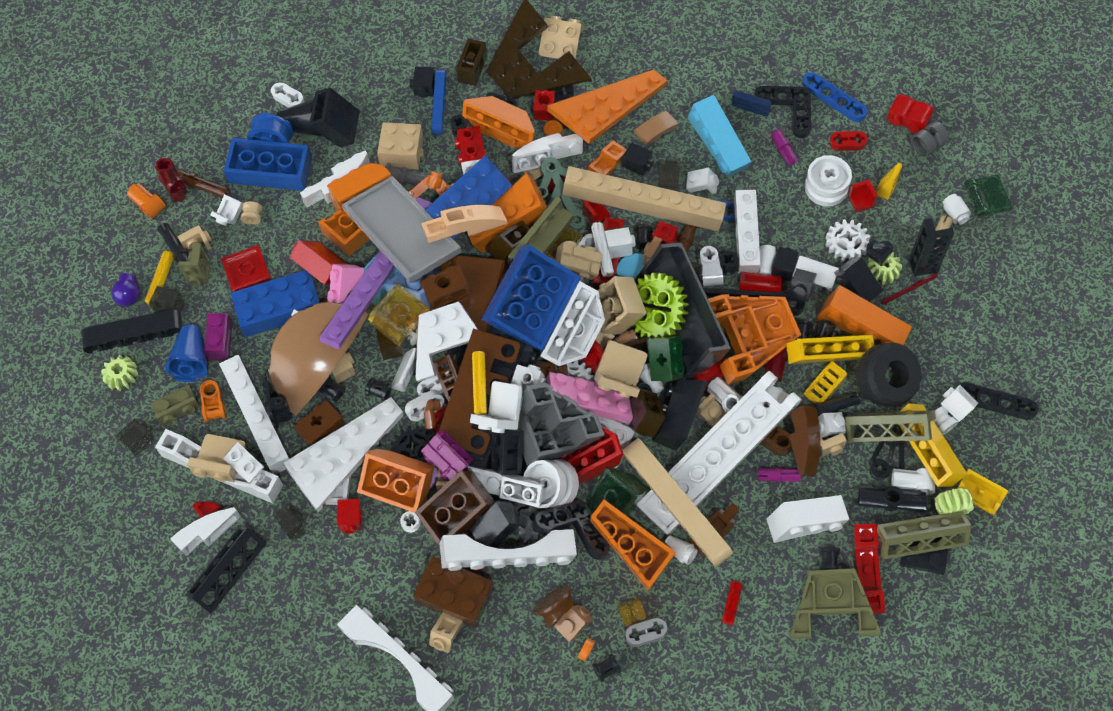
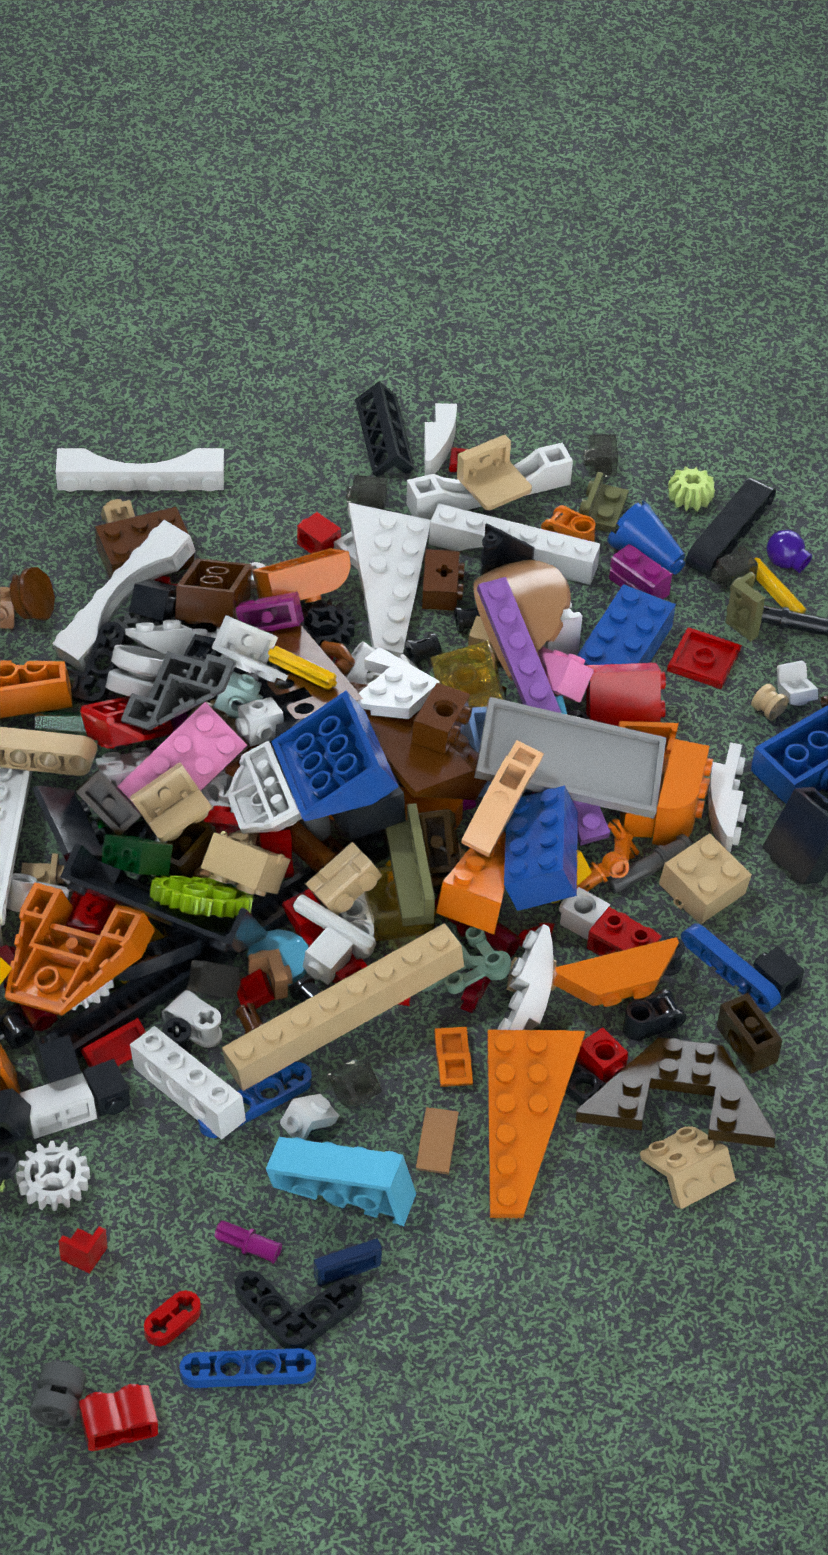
camera: 130 degrees right, 15 degrees down
(194, 235) = (787, 644): tan bracket -> none
(245, 464) = (468, 477): white hinge -> none
(637, 159) = (415, 1078): black brick -> none
(666, 232) = (279, 1000): red brick -> none
(767, 259) = (140, 1082): white cone -> none
(828, 180) = (145, 1226): white wheel -> none
(888, 182) = (62, 1283): yellow slope -> none

